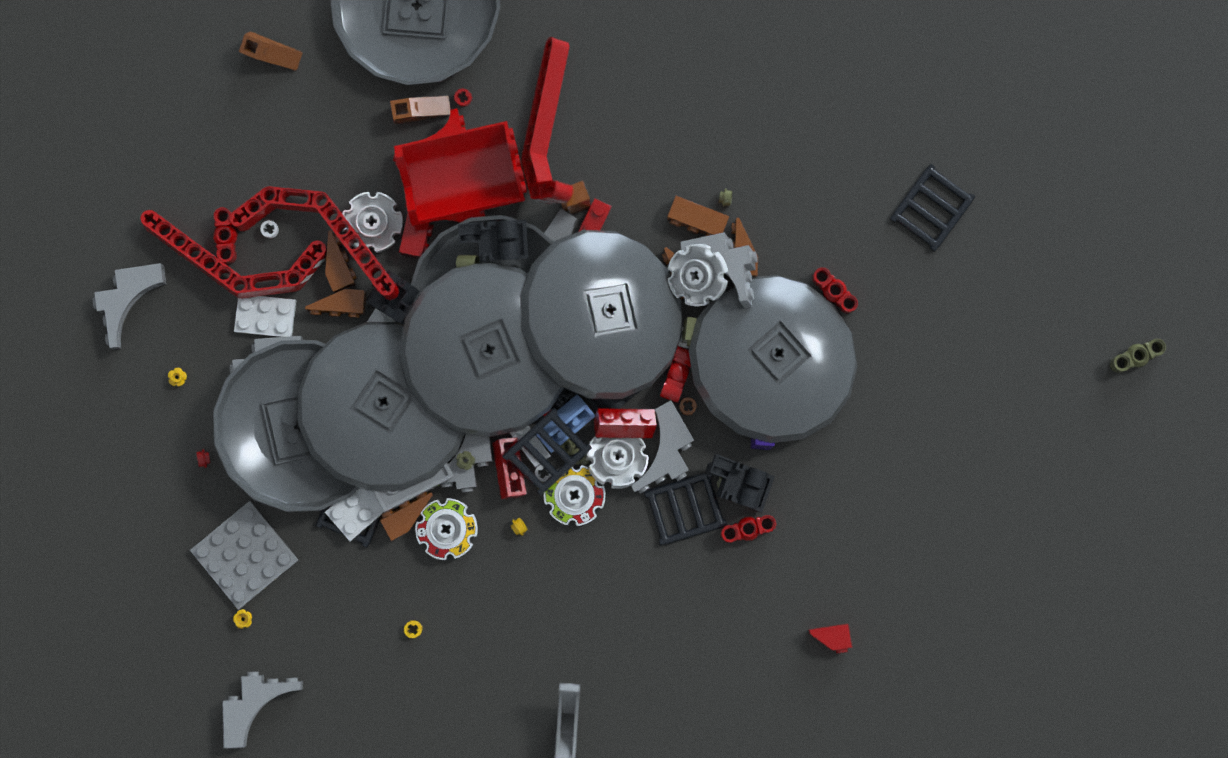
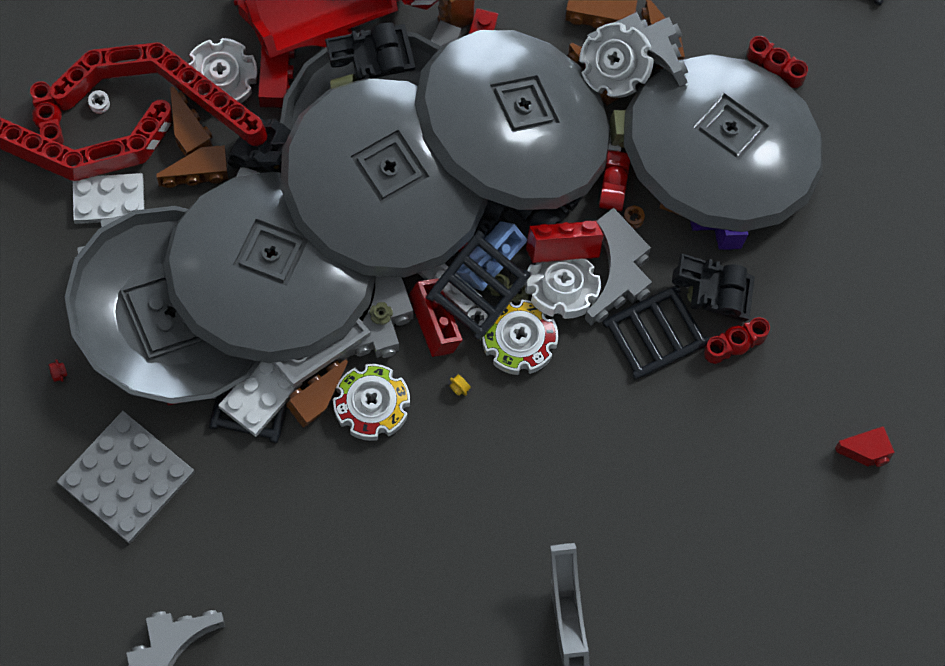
camera: 15 degrees left, 15 degrees down
(182, 377) = (11, 289): yellow plate -> none
(237, 619) = (133, 547): yellow plate -> none
(413, 623) = (351, 536): yellow bush -> none

